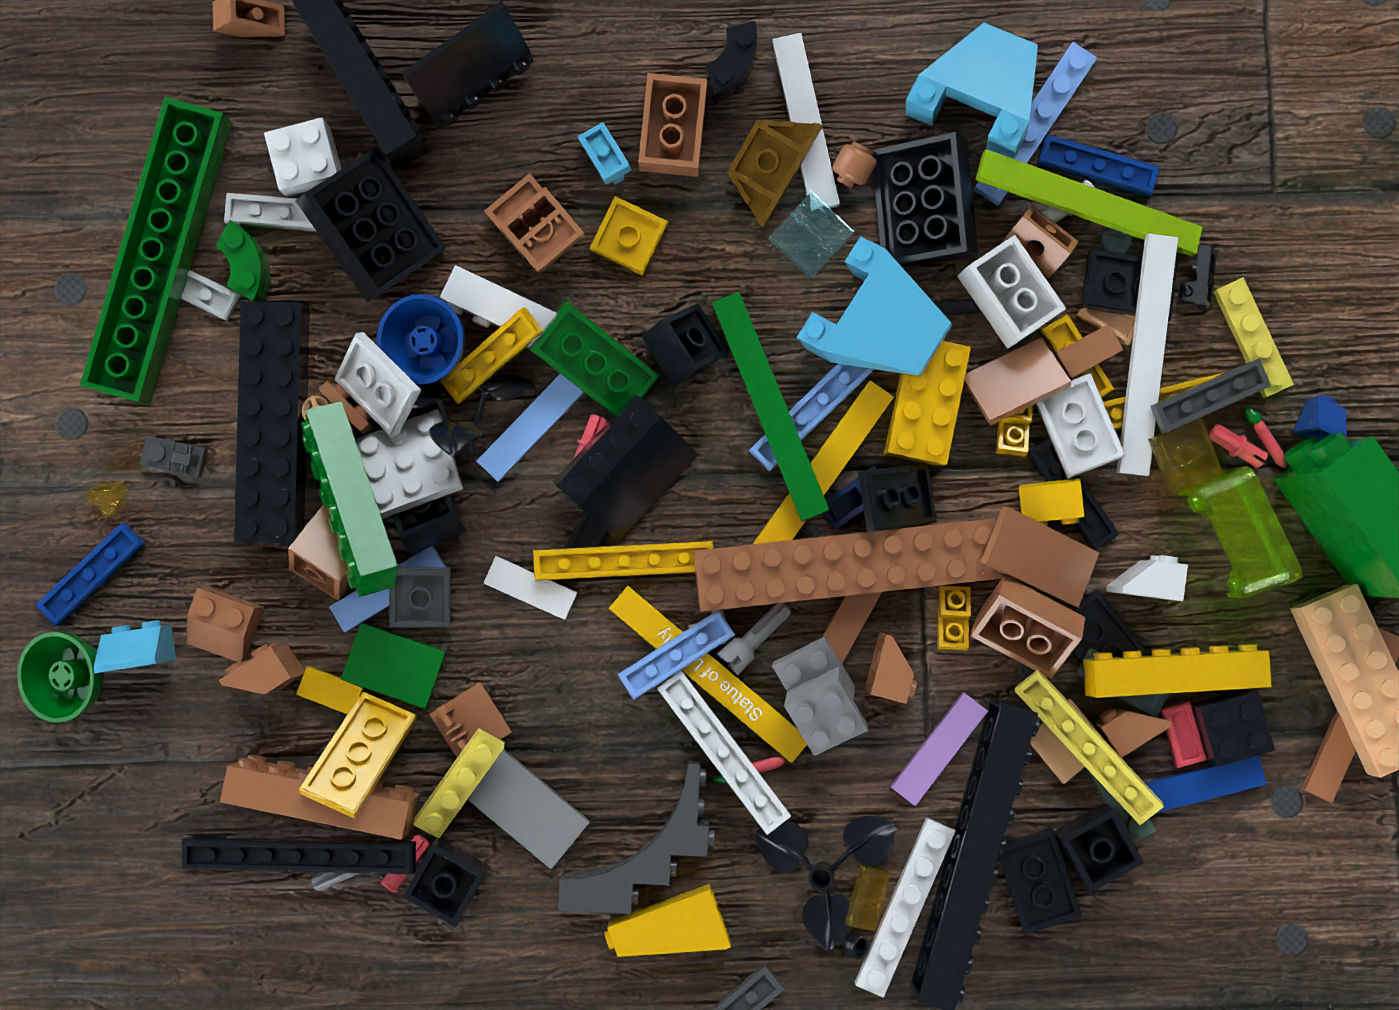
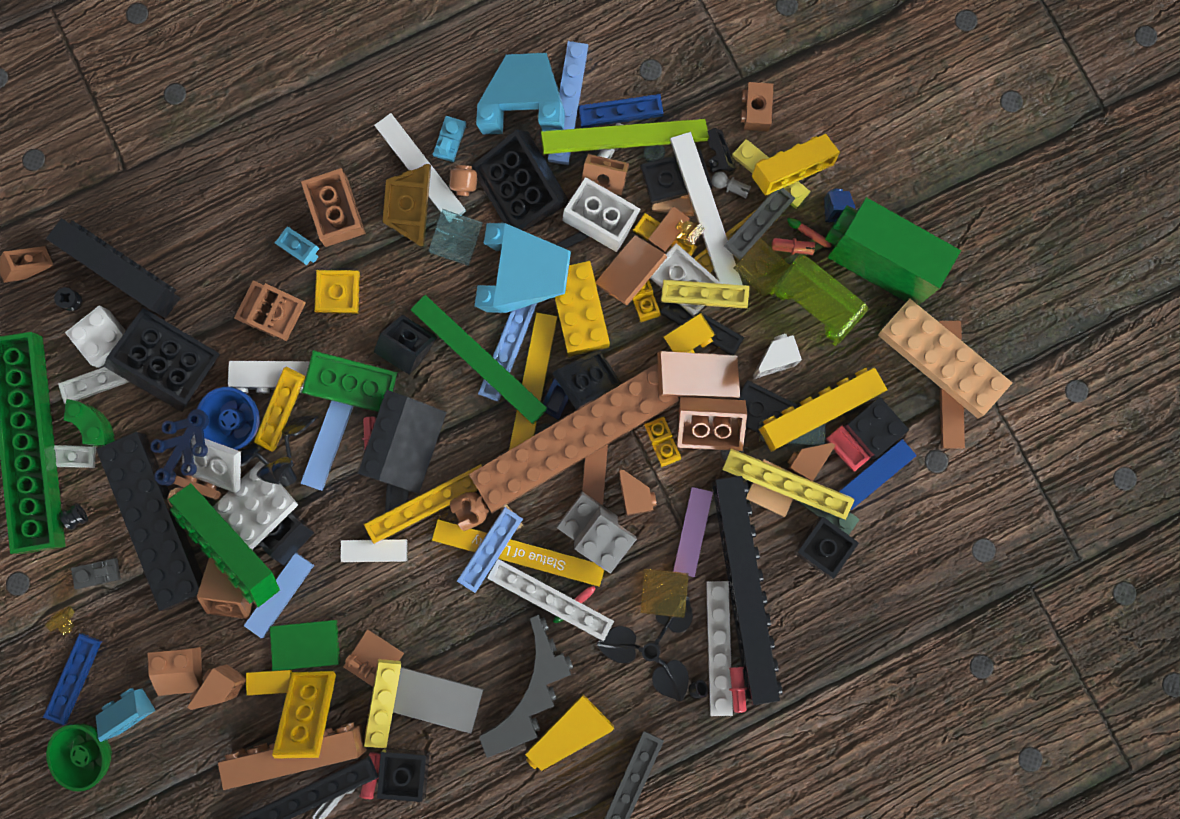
camera: 20 degrees left, 5 degrees down
(176, 372) = (73, 516): none -> black wheel
(291, 92) = (74, 299): none -> black wheel
(351, 347) = (183, 446): none -> dark blue plant
(421, 598) = (302, 591): dark grey tile -> none
(469, 66) = (181, 229): black slope -> none
(673, 593) = (469, 510): none -> nougat helmet
(734, 64) = (356, 150): black brick -> none
(740, 651) = (533, 524): light grey piece -> none
(860, 101) = (449, 139): none -> medium azure hinge
(867, 898) = (691, 653): clear yellow tile -> none
(869, 809) = (664, 593): none -> clear yellow tile
(905, 970) = (738, 689): none -> coral axle
(1038, 881) = (798, 589): black plate -> none
(1098, 458) = (705, 294): none -> light yellow tile
(1114, 367) = (689, 232): none -> clear yellow tile
(1184, 316) = (721, 180): none -> light grey pin
(1290, 229) = (763, 96): none -> nougat brick
(1293, 341) = (795, 164): none -> yellow brick

